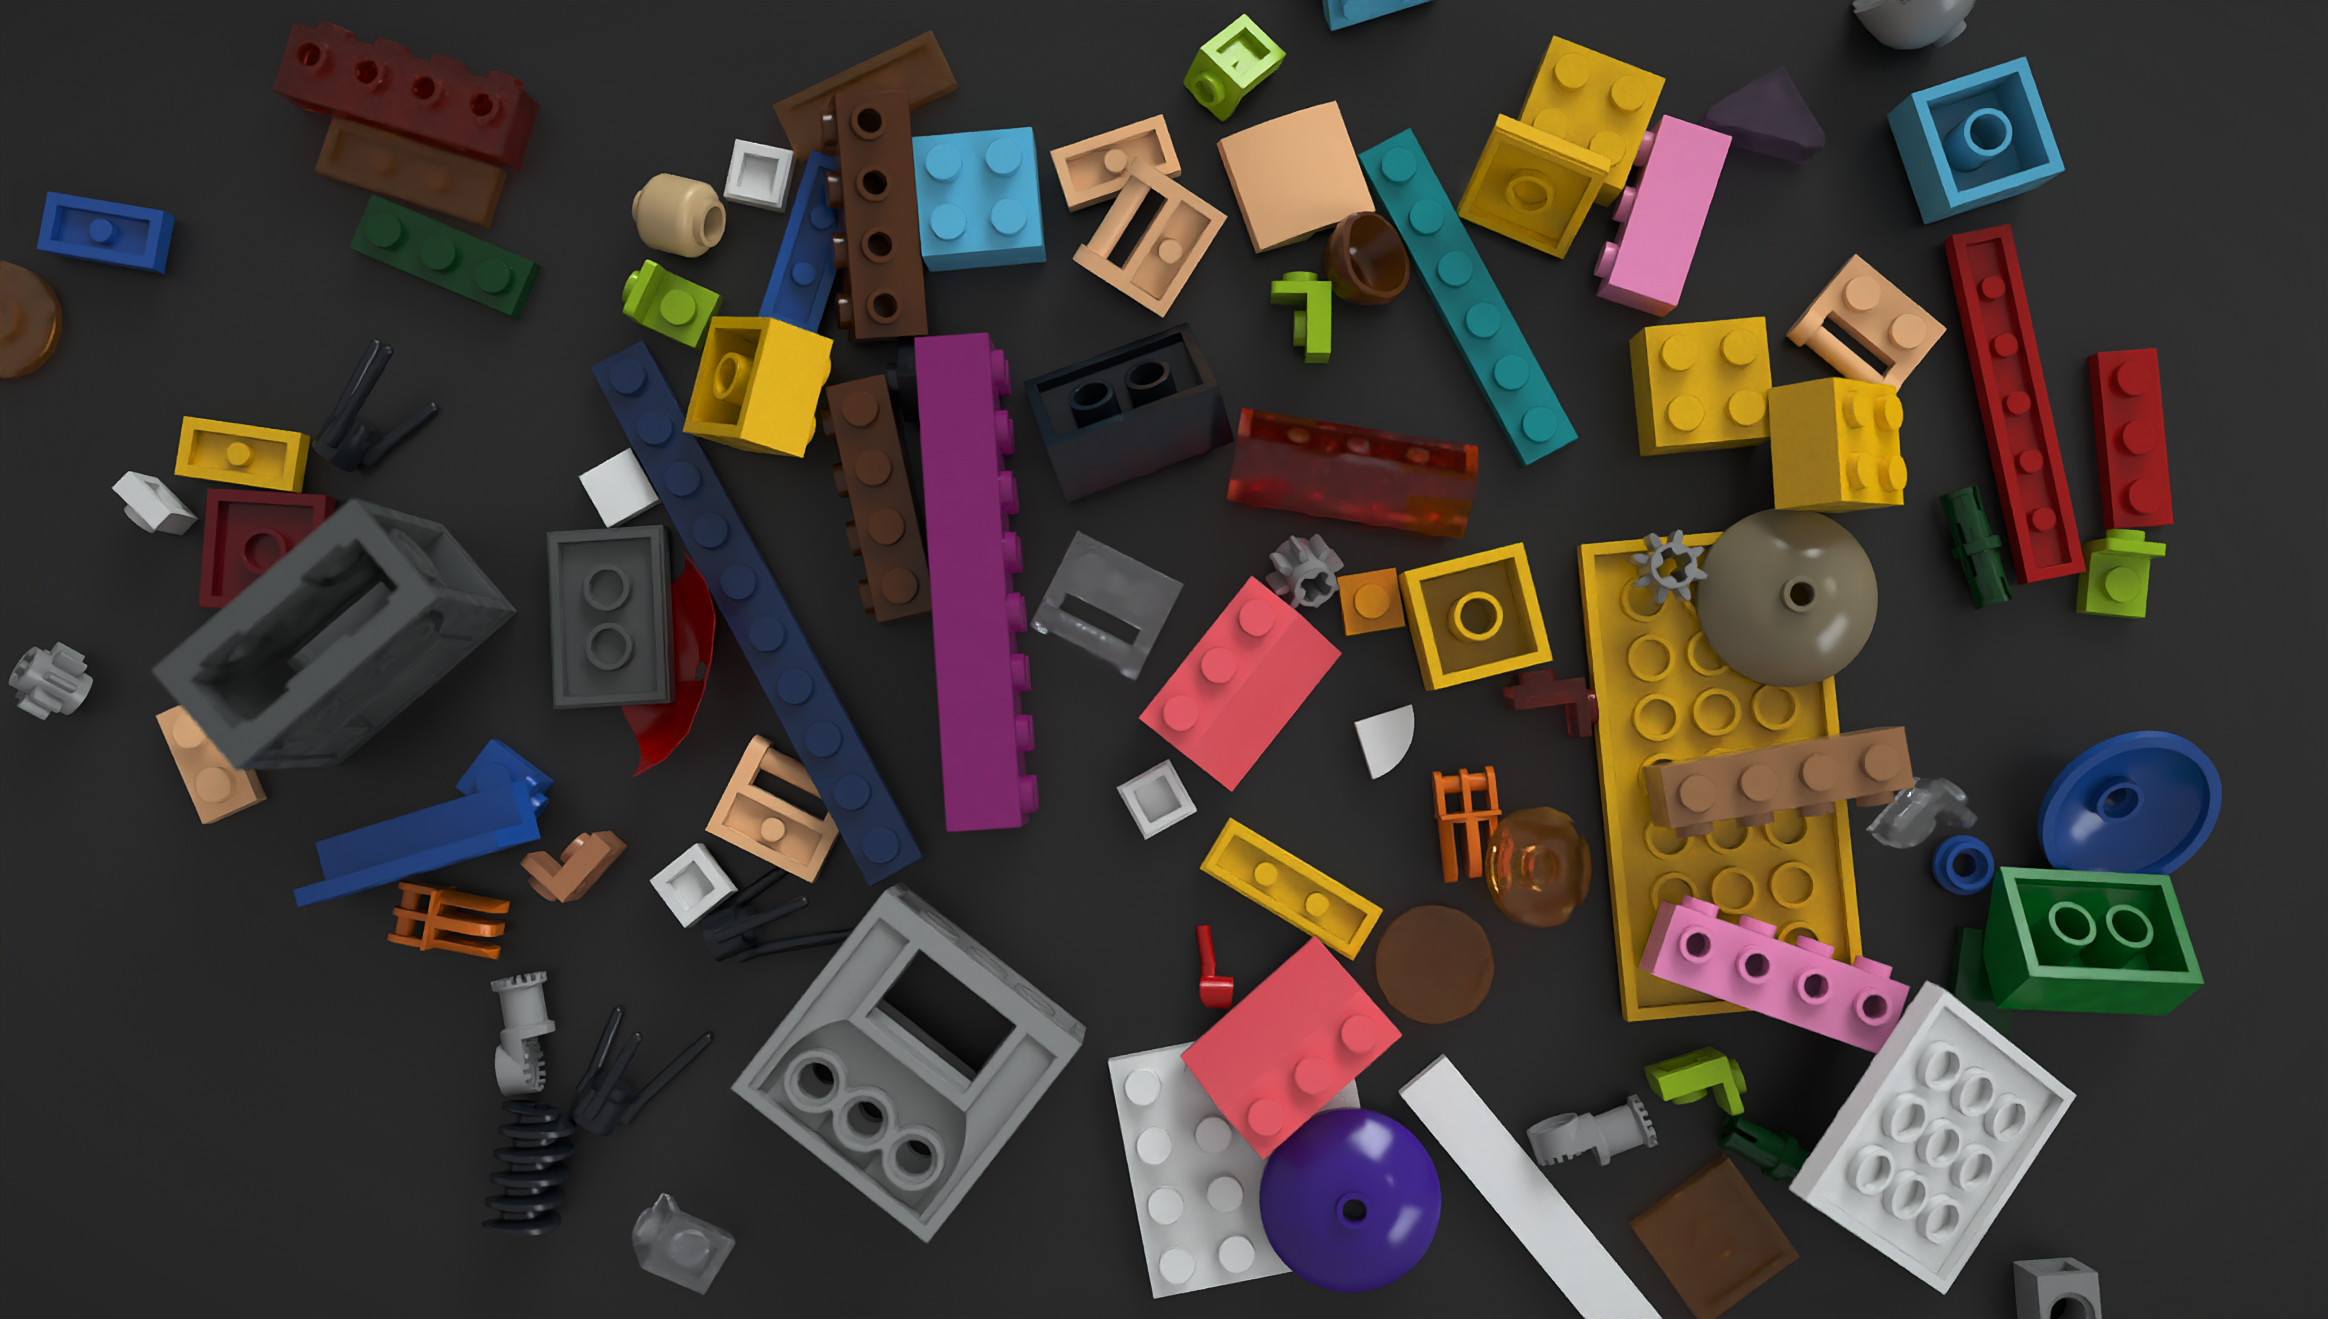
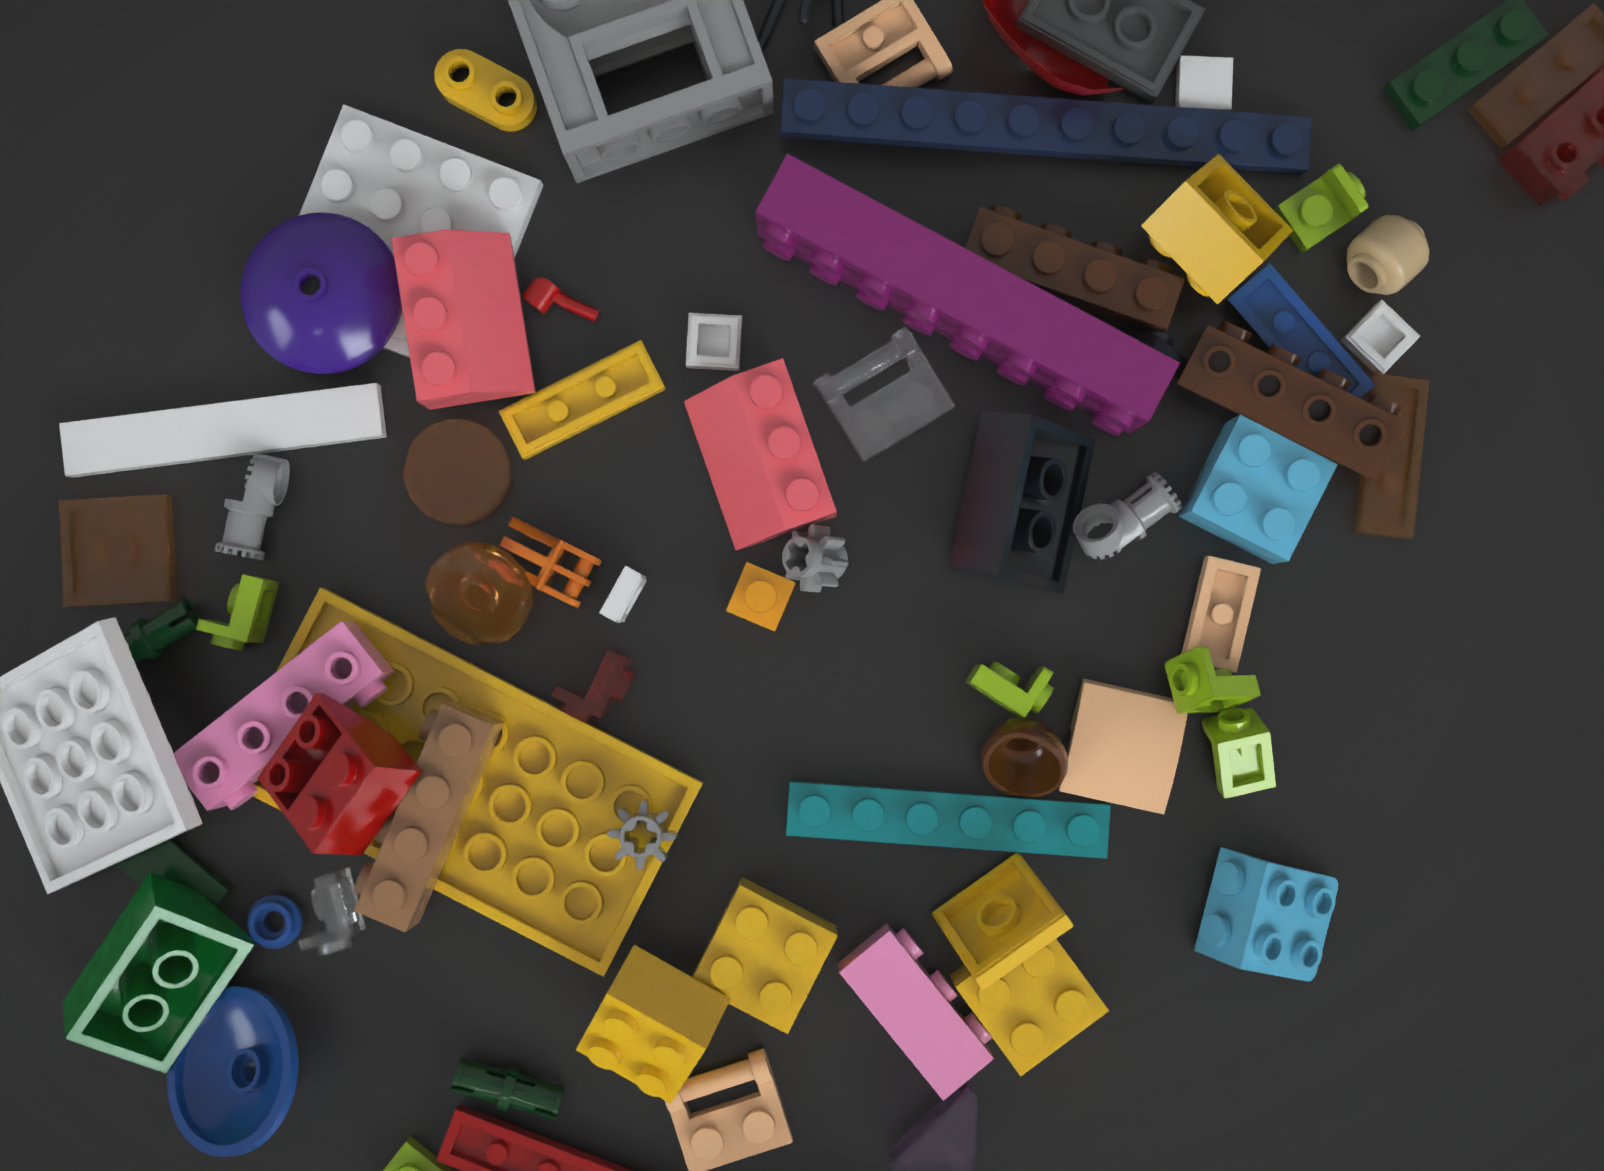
camera: 120 degrees right, 0 degrees up
(1053, 1172) = (483, 89): none -> yellow plate
(1079, 303) = (1128, 517): none -> light grey connector
(1167, 247) = (1129, 610): light nougat plate -> none
(1198, 137) = (1205, 690): none -> lime bracket
(1353, 473) = (865, 640): clear red brick -> none
(1385, 739) = (649, 542): white tile -> none
(1452, 730) = (623, 595): none -> white tile
(1474, 617) = (697, 664): yellow brick -> none
(1748, 603) = (584, 883): dark tan dish -> none
(1802, 881) = (338, 777): none -> red slope

